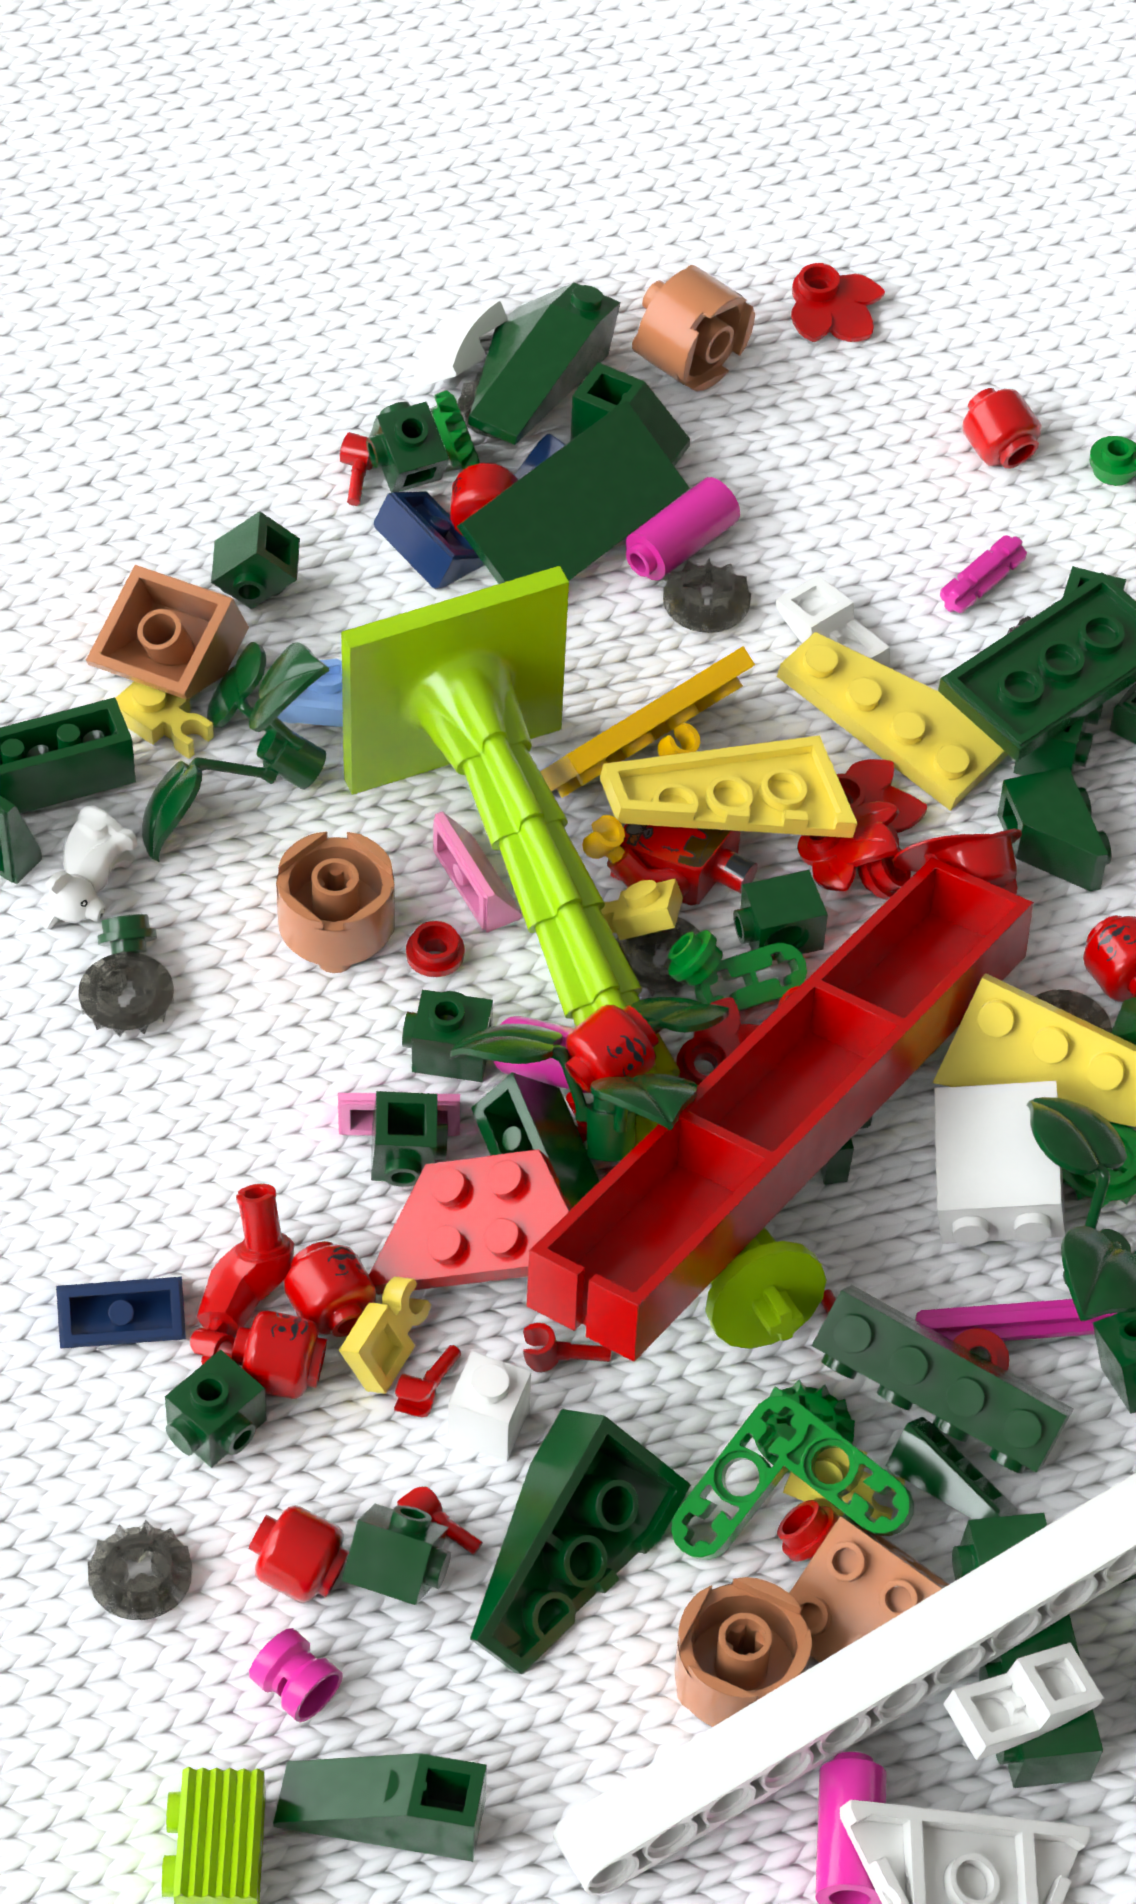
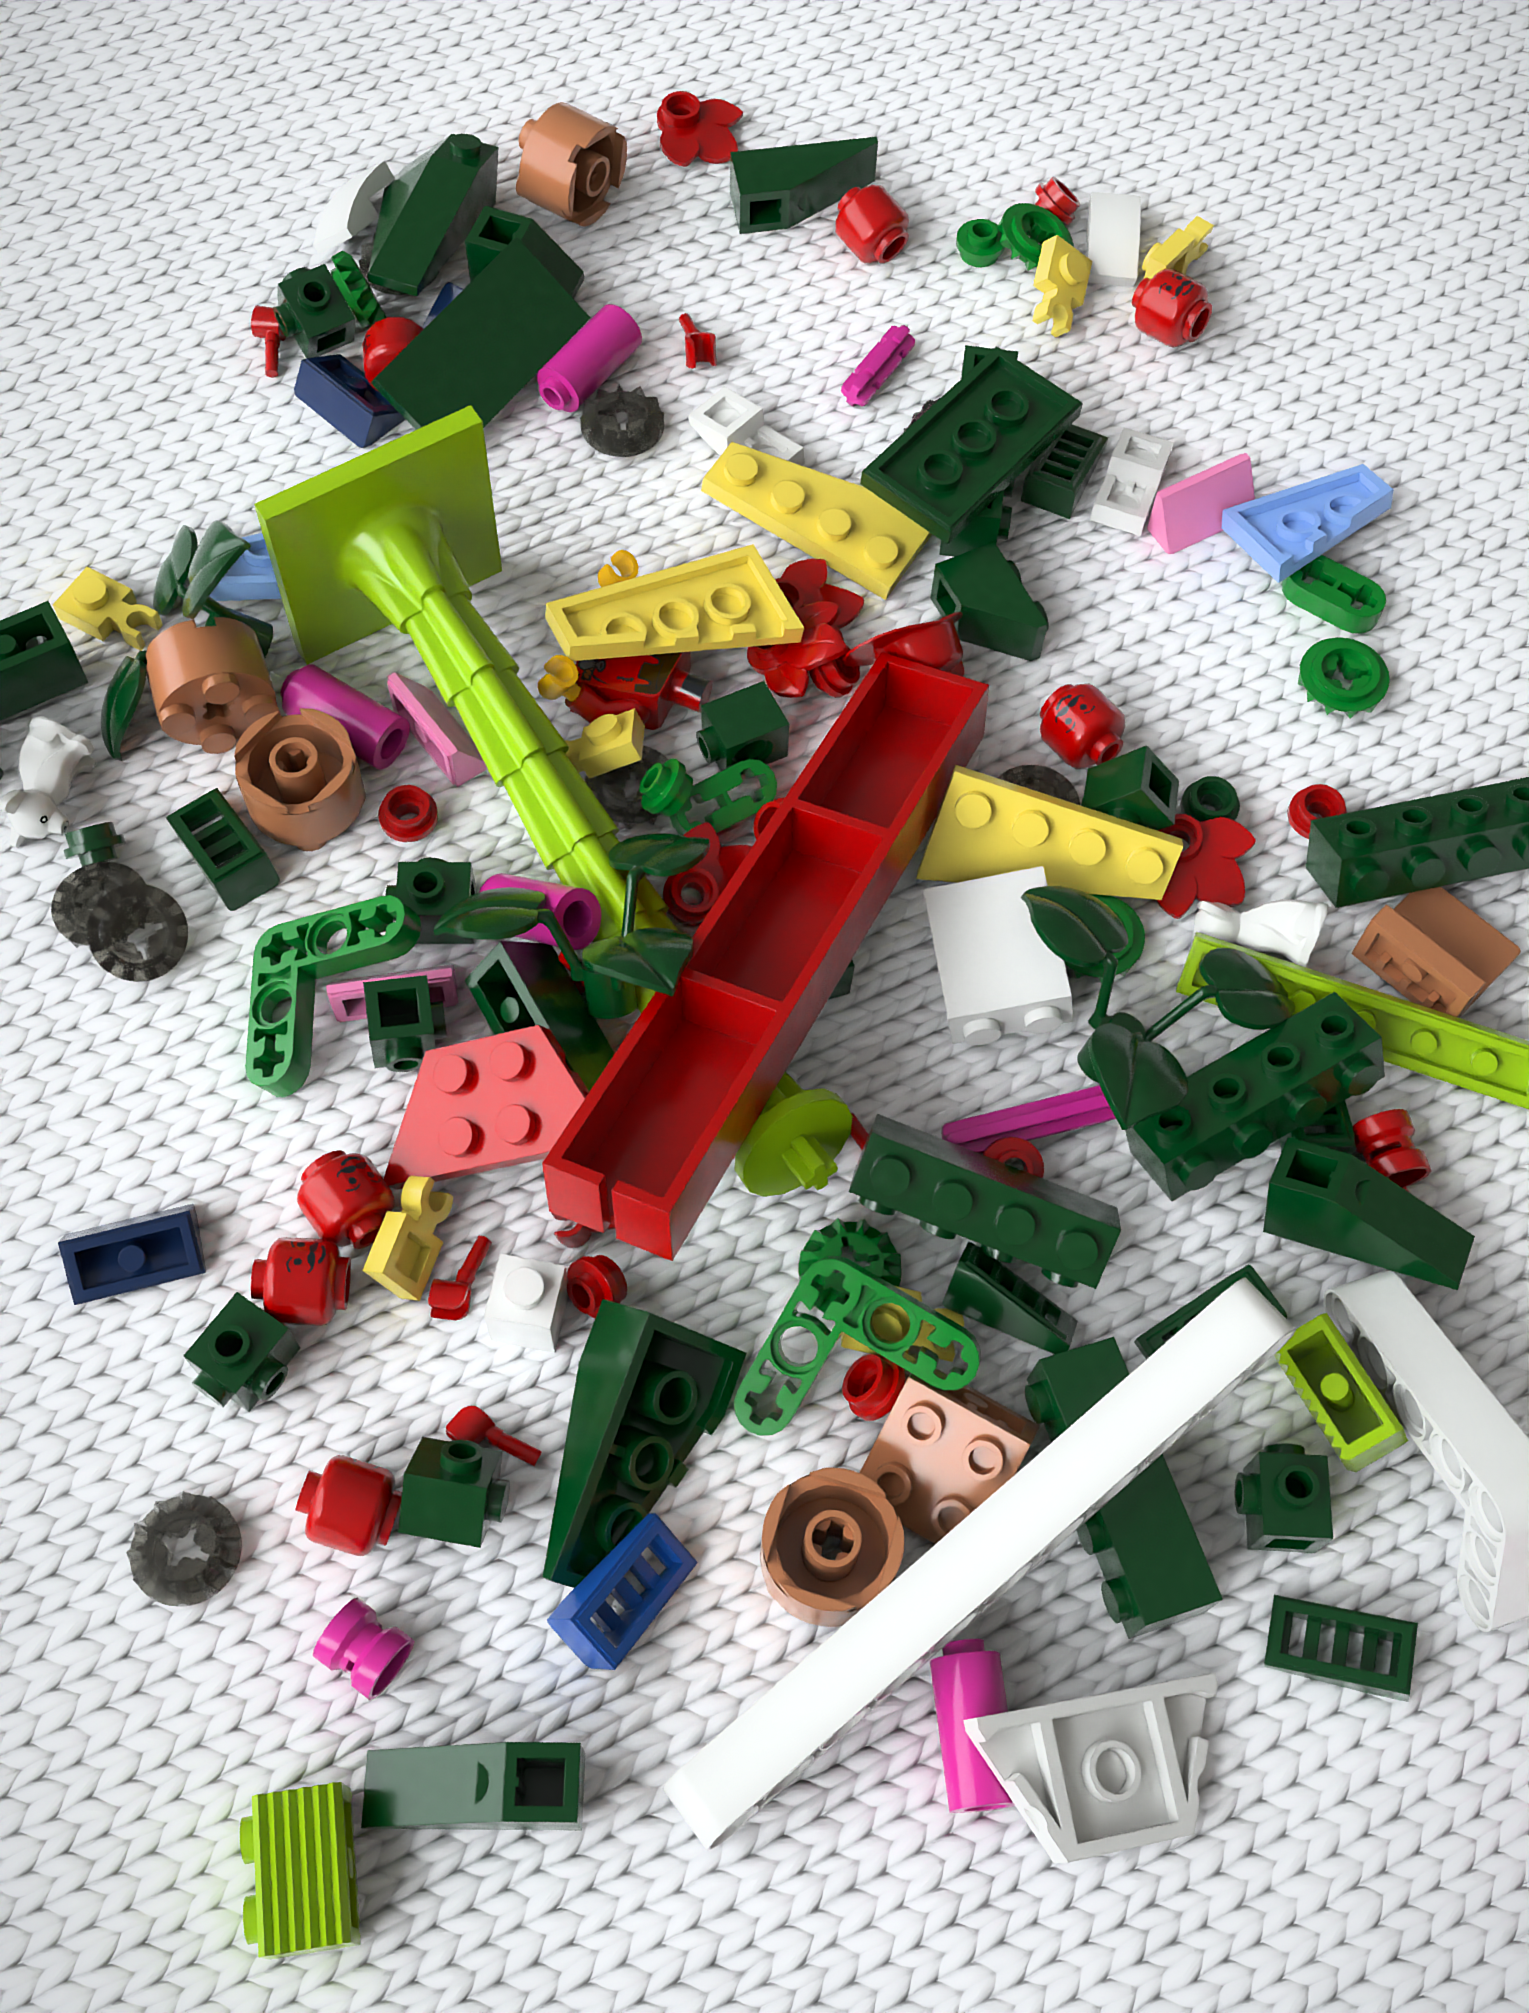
camera: 10 degrees left, 10 degrees up
(169, 634) = (100, 528): nougat slope -> none
(176, 998) = (163, 947): none -> clear smoke gear
(243, 1273) = (253, 1199): red arm -> none
(251, 961) = (242, 875): none -> dark green slope
(255, 560) = (179, 442): dark green brick -> none
(260, 797) = (209, 682): none -> nougat brick
(294, 1074) = (297, 978): none -> green beam
(415, 864) = (372, 728): none -> dark pink brick
(505, 1688) = (587, 1599): none -> blue slope
(552, 1393) = (593, 1280): none -> red plate
(610, 1045) = (596, 904): red head -> none
(648, 723) = (583, 555): yellow plate -> none
(797, 528) = (698, 345): none -> red hand
(925, 374) = (794, 182): none -> dark green slope
(1023, 1703) = (1134, 1564): white slope -> none

